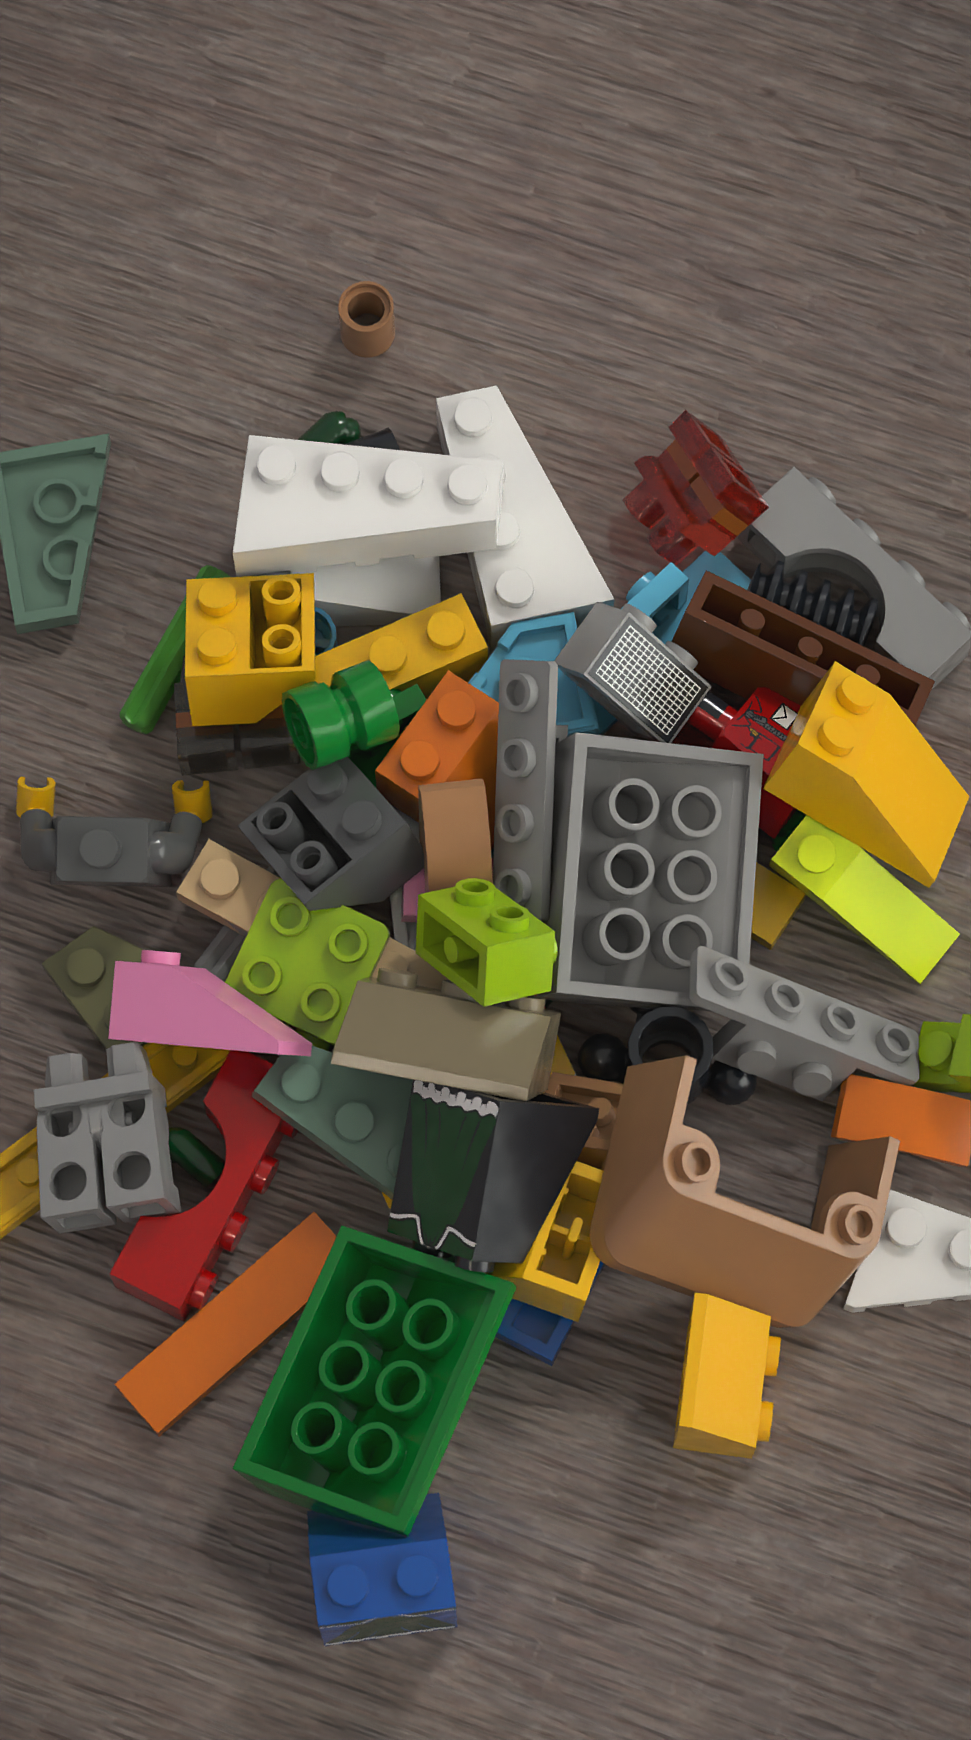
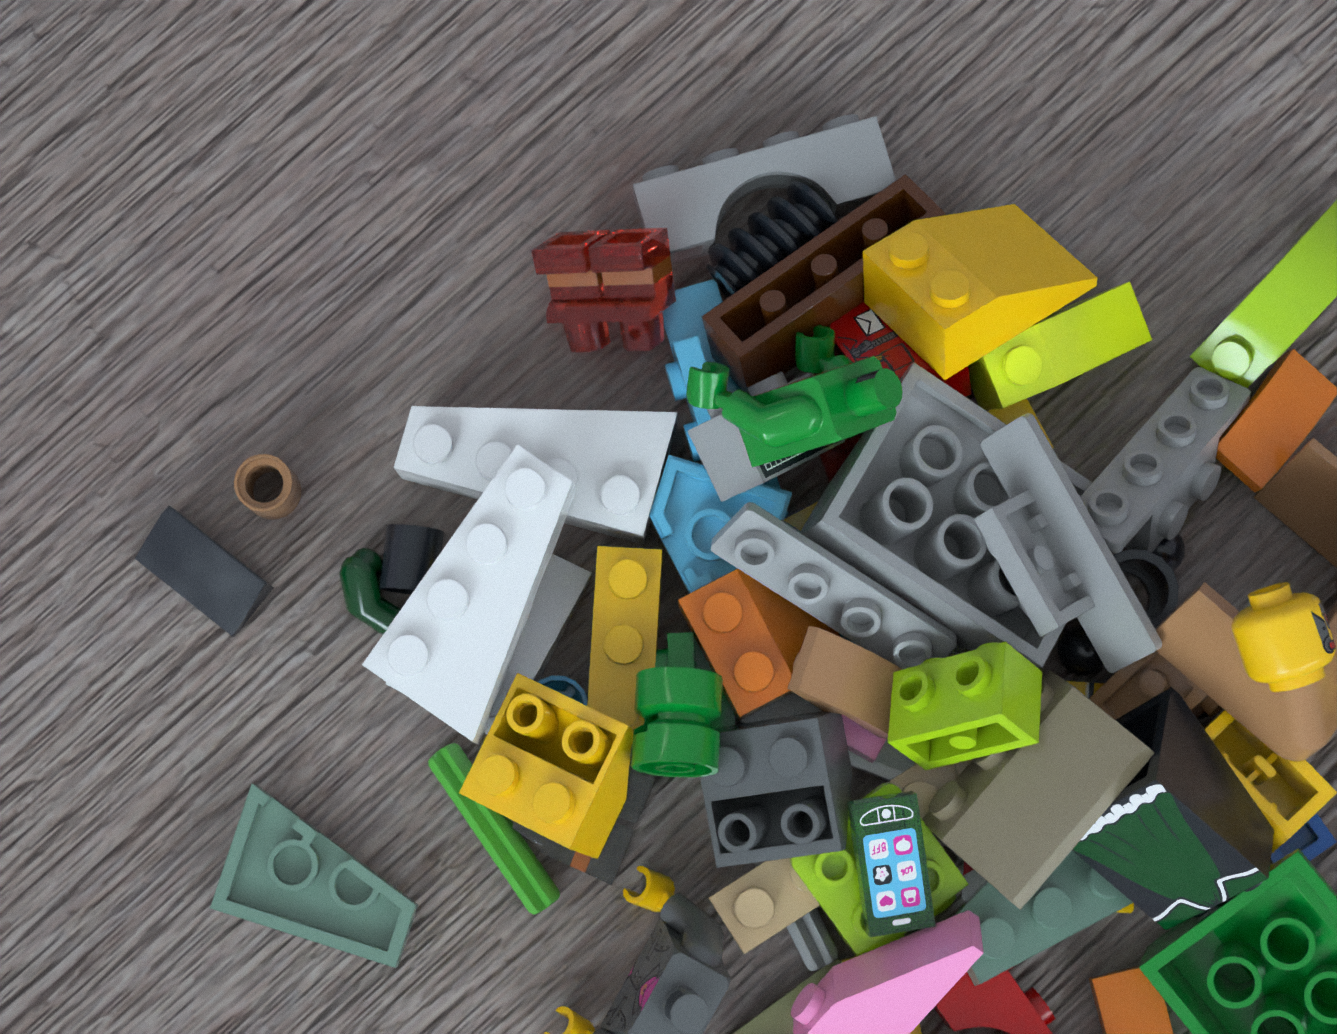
camera: 60 degrees left, 10 degrees up
(268, 309) = (202, 571): none -> black slope
(316, 957) = (891, 863): none -> tile
(658, 945) = (1056, 550): none -> light grey bracket
(663, 670) = (808, 412): none -> green torso
(678, 1130) = (1283, 638): none -> yellow head

